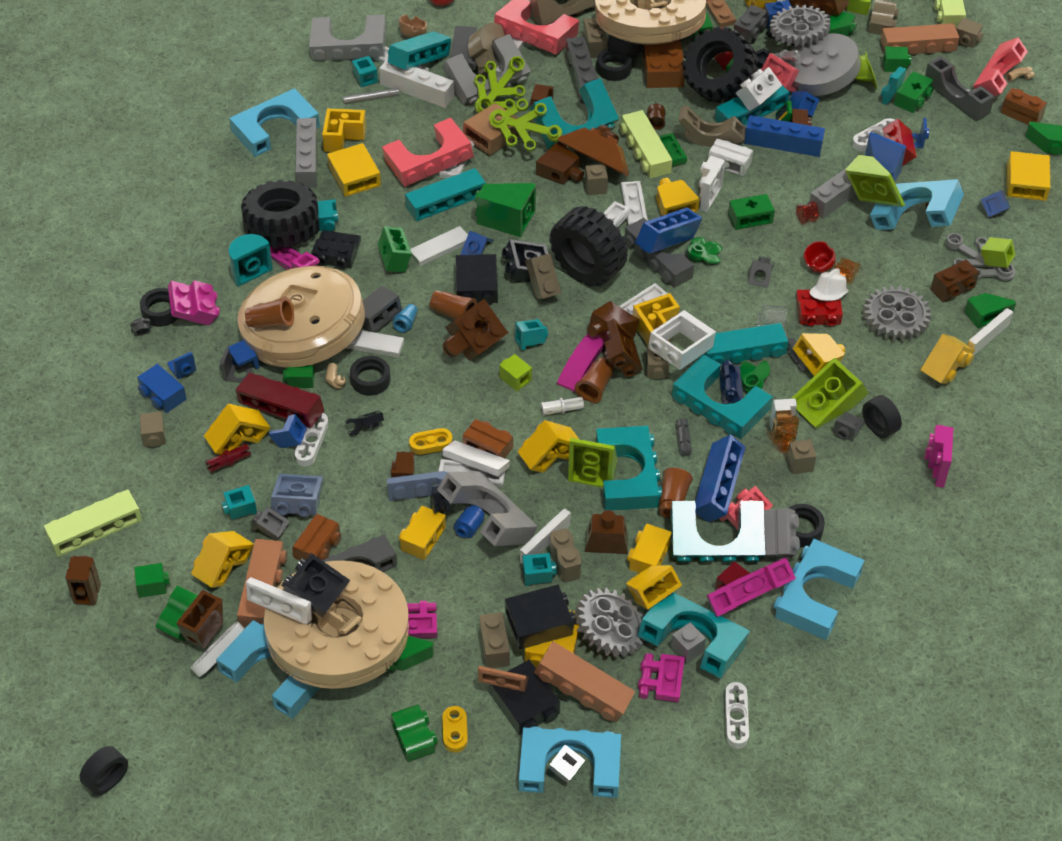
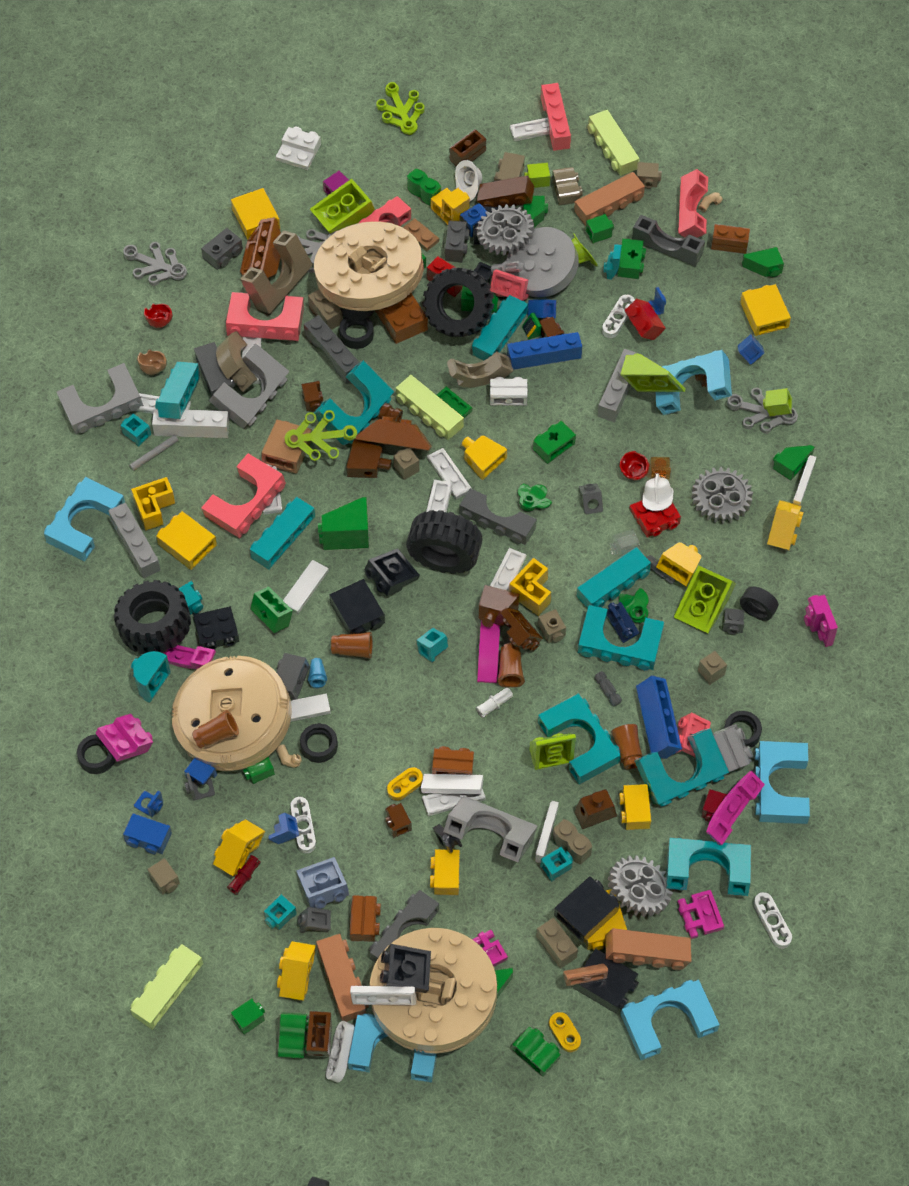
camera: 25 degrees left, 10 degrees up
(83, 580) = (196, 1043): reddish brown brick -> none
(141, 326) = (91, 780): dark grey plate -> none
(279, 399) = (258, 801): dark red brick -> none
(370, 420) = (341, 786): black plate -> none
(413, 485) = (417, 831): sand blue plate -> none
(469, 521) = (478, 845): blue brick -> none
(473, 332) = (379, 665): reddish brown brick -> none
(474, 244) = (336, 574): blue bracket -> none
(497, 88) = (269, 401): lime plant -> none
(515, 372) = (439, 687): lime brick -> none
(543, 276) = (416, 585): dark tan brick -> none
(545, 445) = (507, 746): yellow brick -> none
(566, 764) = (669, 1023): white brick -> none
(649, 587) = (658, 840): yellow torso -> none
(656, 116) = (422, 373): reddish brown wheel -> none
(668, 230) = (500, 495): blue brick -> none
(683, 323) = (564, 585): white window -> none
(688, 643) = (707, 876): light grey brick -> none
(711, 181) = (506, 427): white plate -> none
(758, 88) = (504, 315): white brick -> none
(784, 423) = (685, 645): clear orange hips -> none
(807, 212) = (601, 422): clear red wheel -> none
(887, 153) = (641, 340): blue slope -> none
(954, 280) = (754, 444): reddish brown brick -> none

